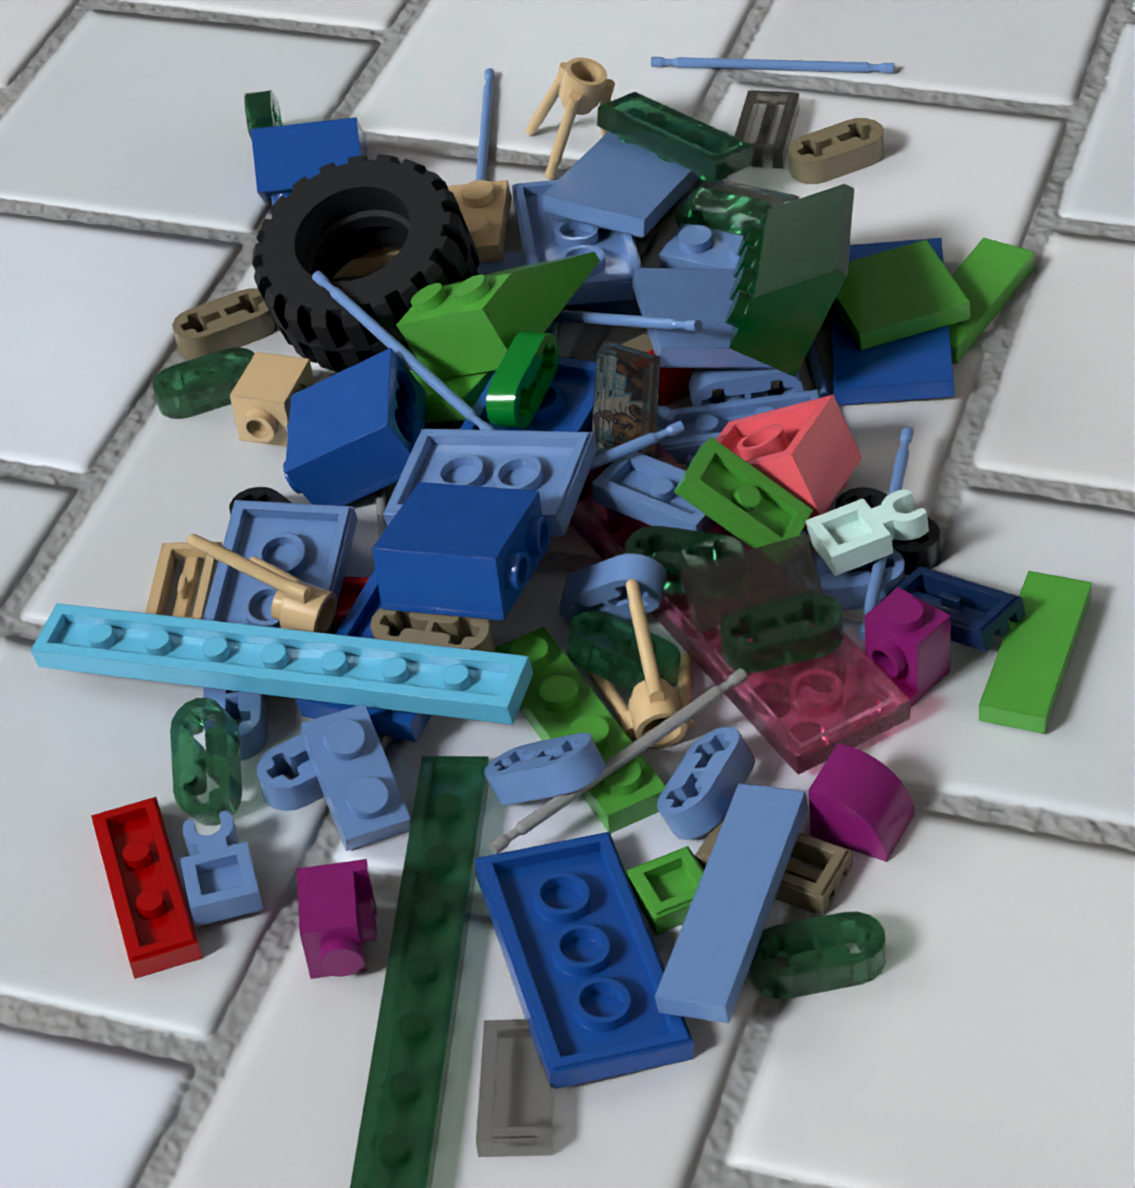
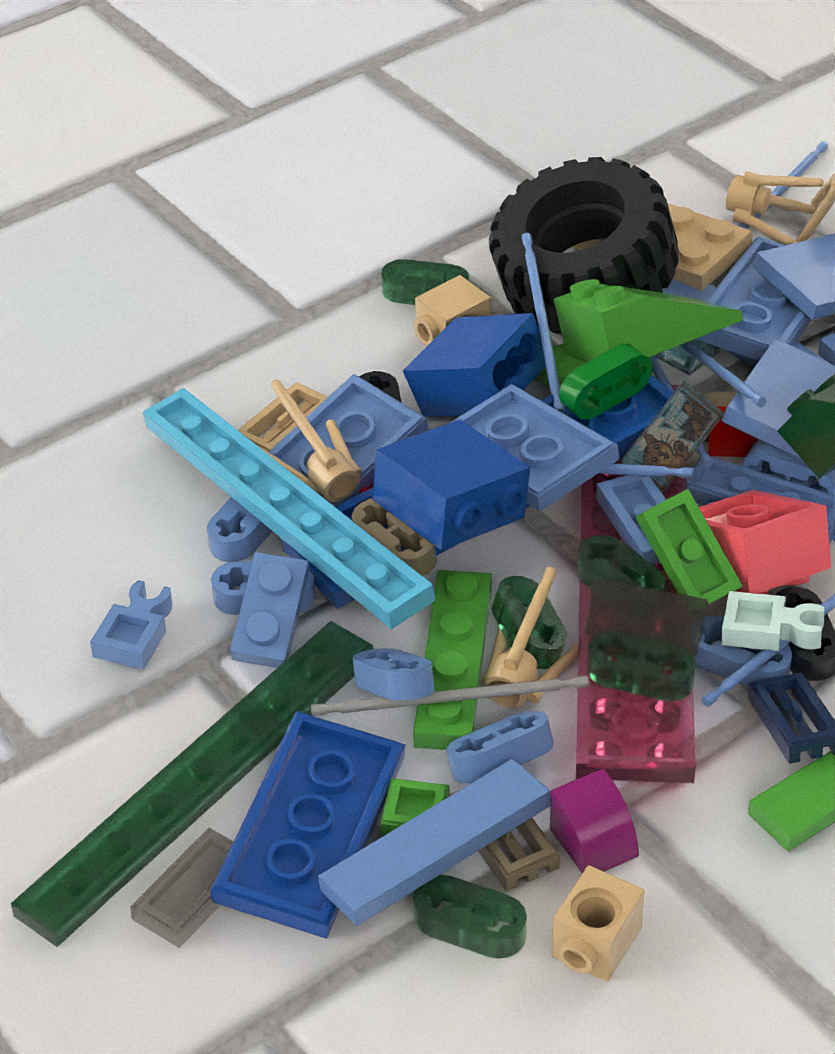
camera: 30 degrees right, 0 degrees up
(146, 888) = (99, 584): red tile -> none
(193, 763) = (187, 546): clear green beam -> none
(223, 324) = (462, 246): dark tan beam -> none
(262, 110) = (617, 108): clear green beam -> none
(299, 150) = (635, 144): blue slope -> none
(336, 917) = (174, 700): magenta brick -> none
(475, 148) = (750, 196): none -> tan plant
(604, 586) = (571, 573): medium blue beam -> none
(909, 642) = (729, 727): magenta brick -> none
(949, 889) = (601, 903): none -> tan brick

